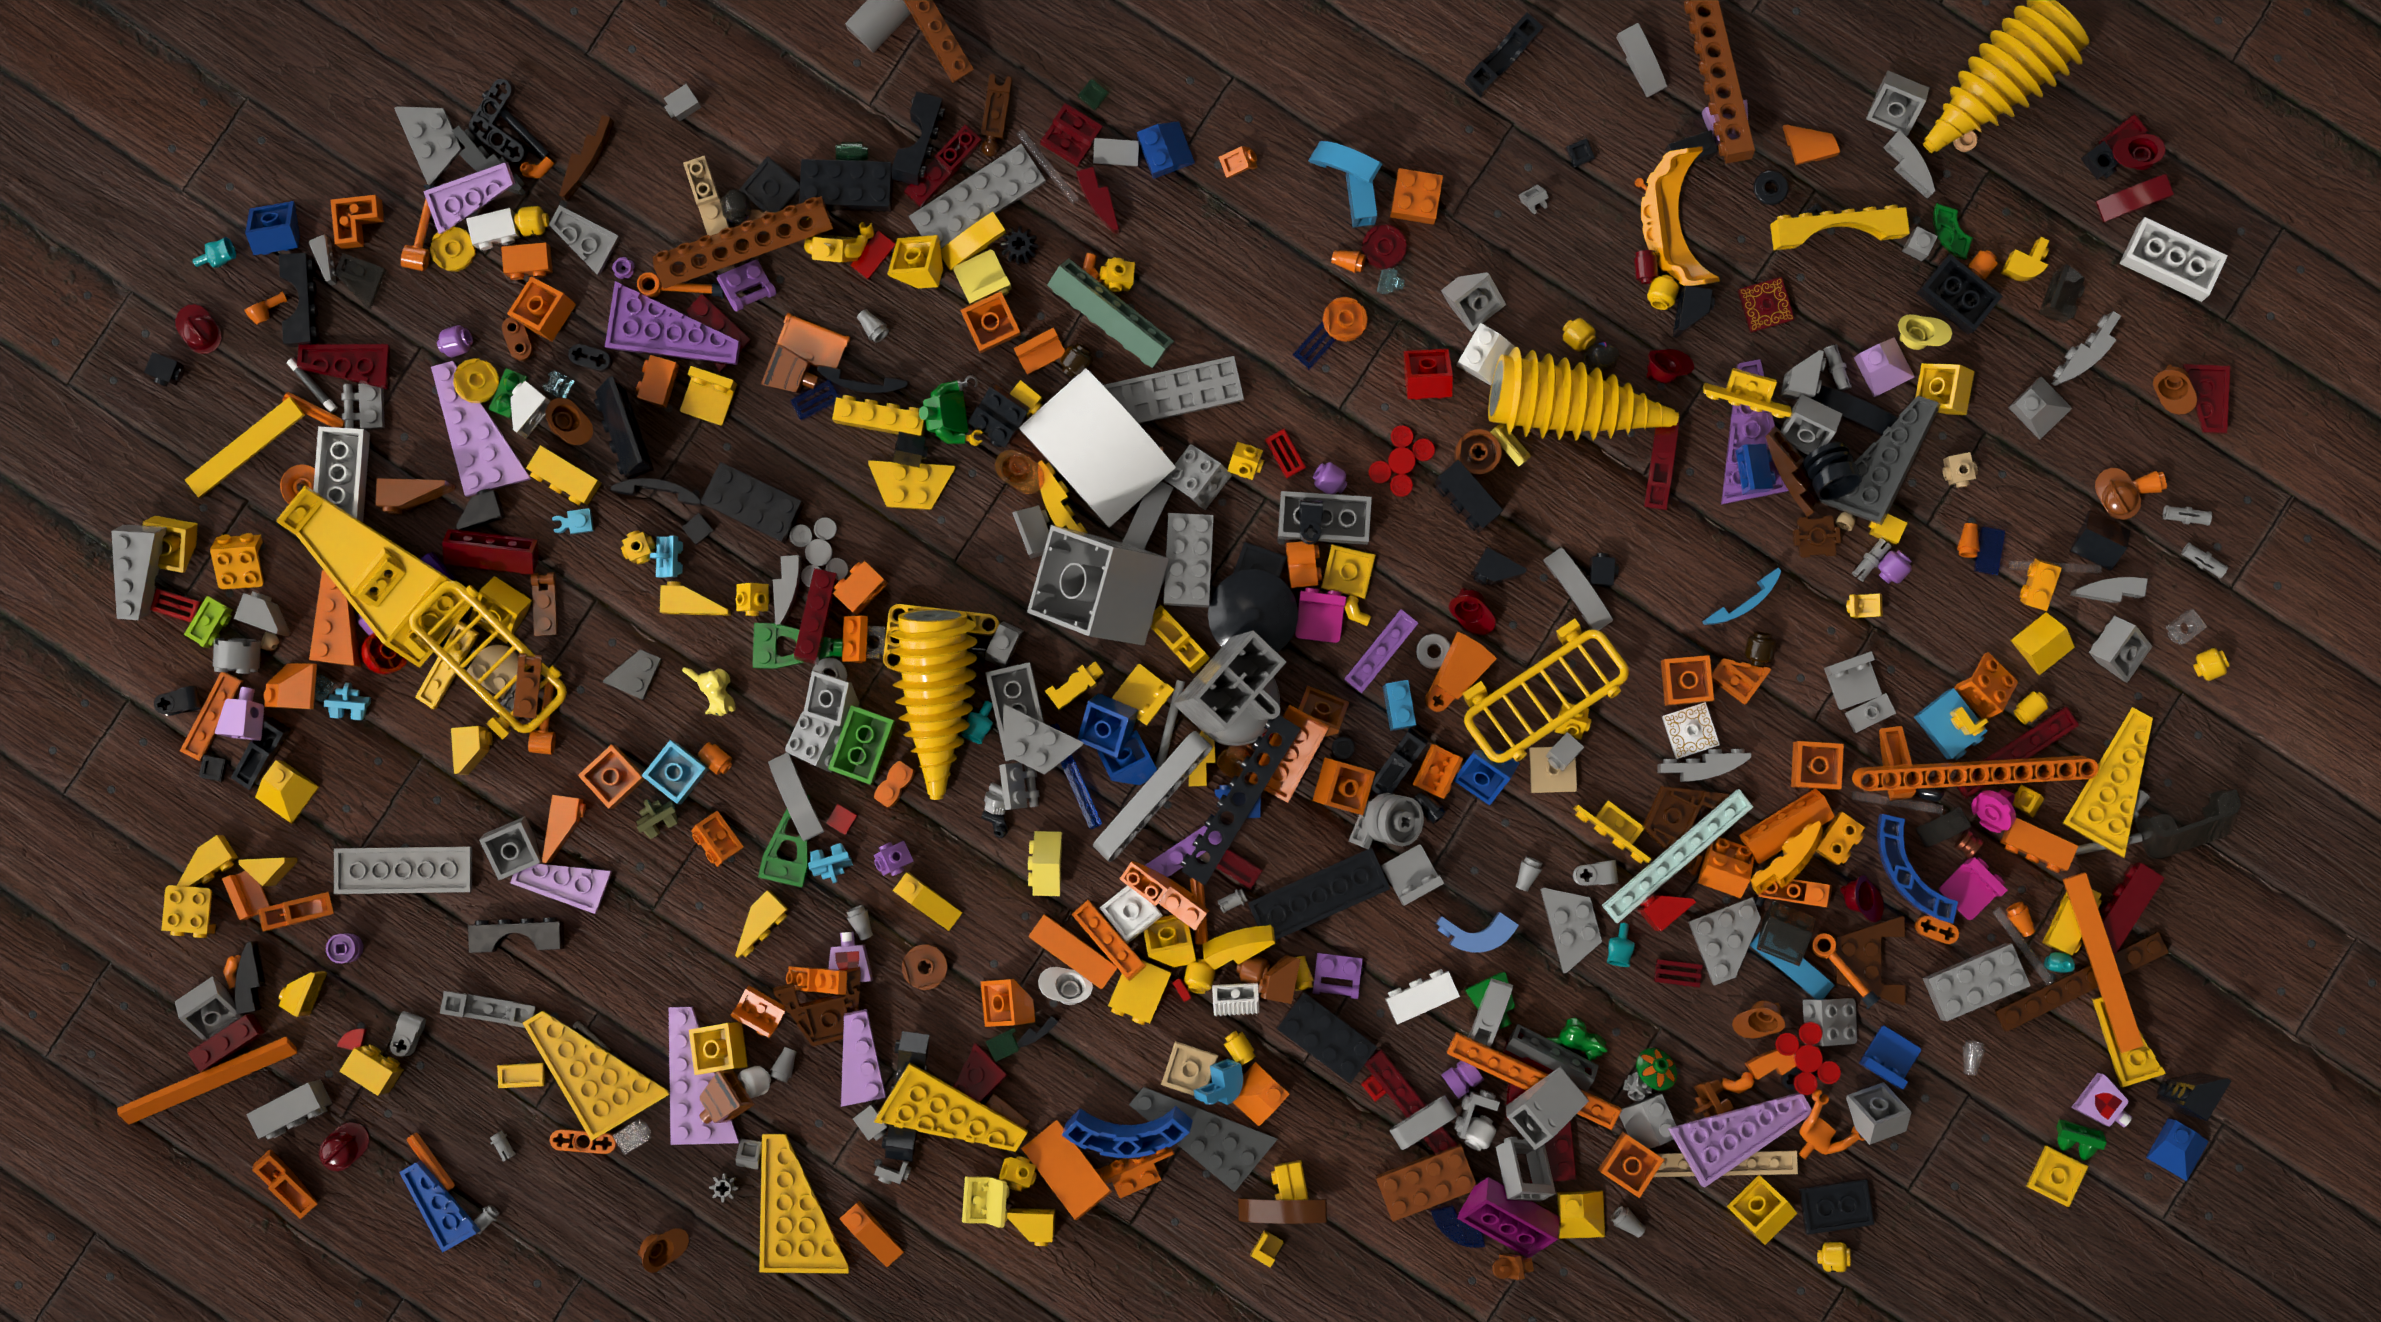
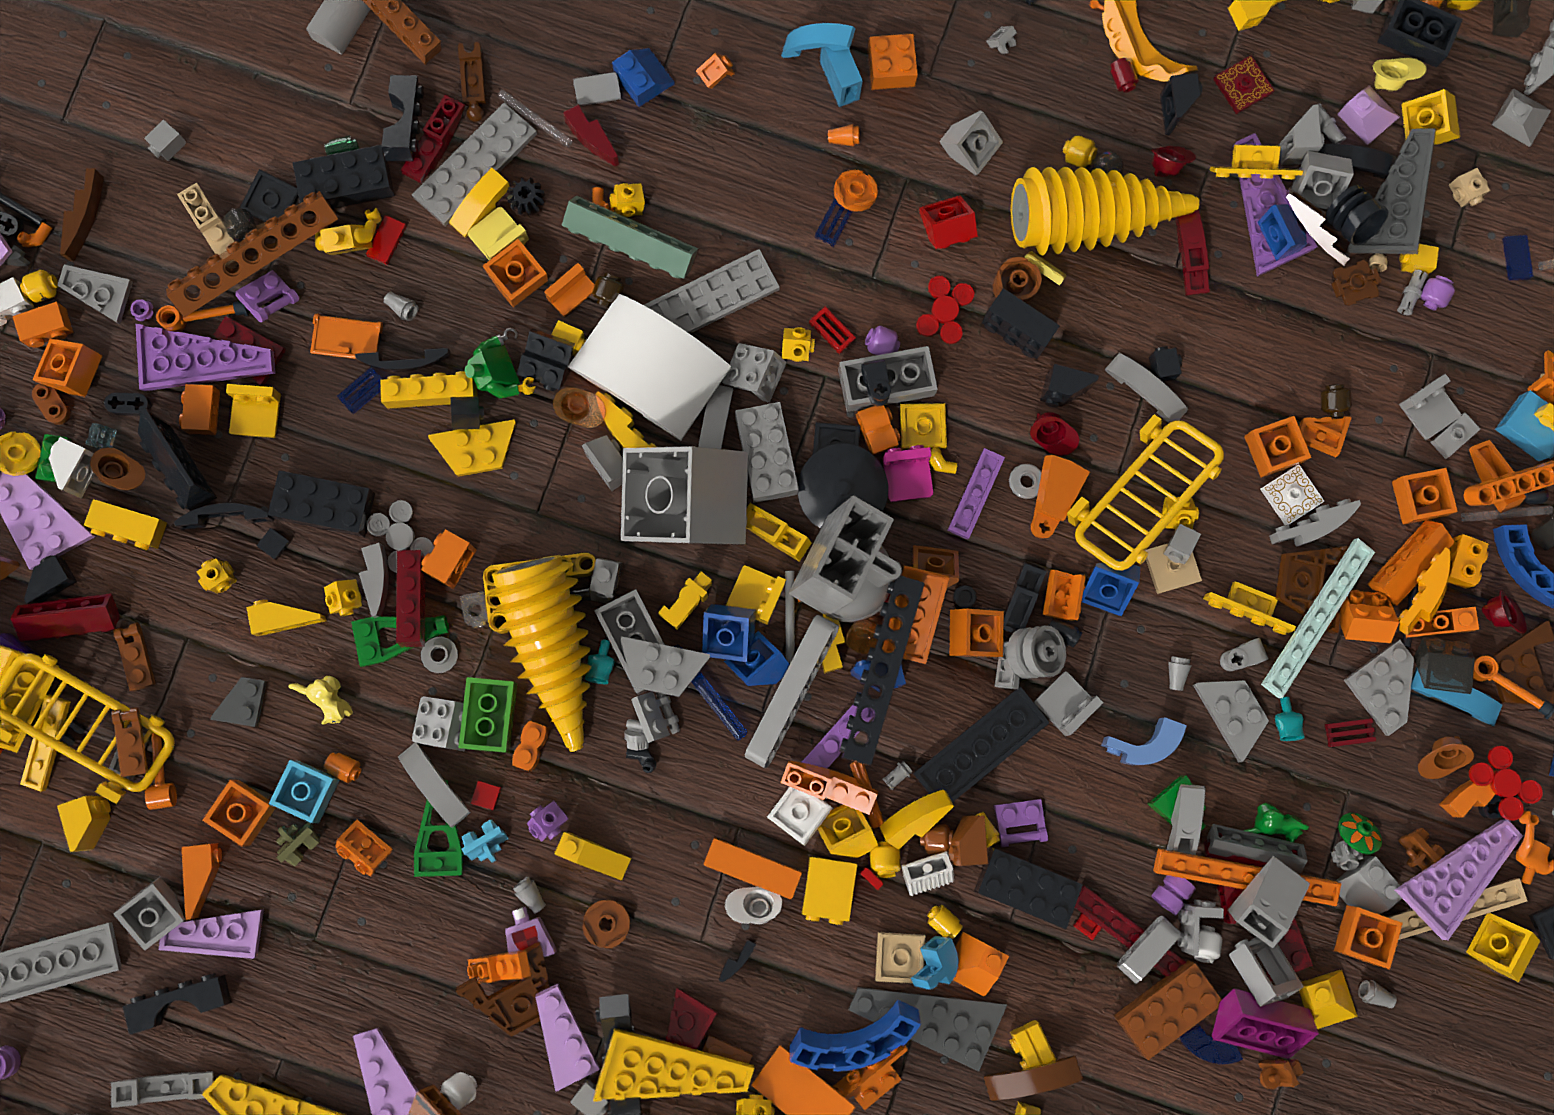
camera: 25 degrees left, 5 degrees down
(501, 674) = (101, 737): tan slope -> none
(504, 603) = (91, 666): yellow slope -> none
(578, 521) = (149, 567): medium azure plate -> none
(667, 556) = (246, 577): medium azure hips -> none
(718, 1048) = (413, 1065): yellow slope -> none
(759, 1012) = (447, 1015): orange bracket -> none
(761, 918) = (426, 918): yellow slope -> none
(783, 1066) = (486, 1065): light grey cone -> none
(788, 371) = (327, 368): dark orange torso -> none
(829, 698) = (444, 676): light grey slope -> none
(854, 639) = (455, 611): orange bracket -> none
(917, 261) = (430, 234): yellow slope -> none
(1003, 1045) = (705, 983): clear green panel -> none
(1006, 1003) = (698, 939): orange slope -> none
(1045, 863) = (702, 786): light yellow brick -> none
(1071, 135) = (550, 84): dark red slope -> none
(1093, 94) = (562, 43): clear green tile -> none
(1108, 940) = (785, 847): orange tile -> none
(1239, 868) = (897, 742): dark red tile -> none
(1384, 246) = (874, 116): dark red tile -> none
(1389, 281) = (888, 145): clear light blue tile -> none
(1399, 705) = (1010, 539): dark azure brick -> none
(1421, 996) = (1110, 821): white brick -> none
(1483, 353) = (995, 190): white slope -> none
(1663, 292) = (1147, 94): yellow head -> none
(1663, 910) = (1323, 675): red slope -> none
(1739, 1086) = (1444, 827): orange arm -> none
(1766, 585) = (1322, 341): dark azure slope -> none
(1835, 1019) = (1515, 735): light grey bracket -> none
(1865, 605) = (1421, 335): yellow bracket -> none
(1969, 541) = (1497, 253): orange cone -> none

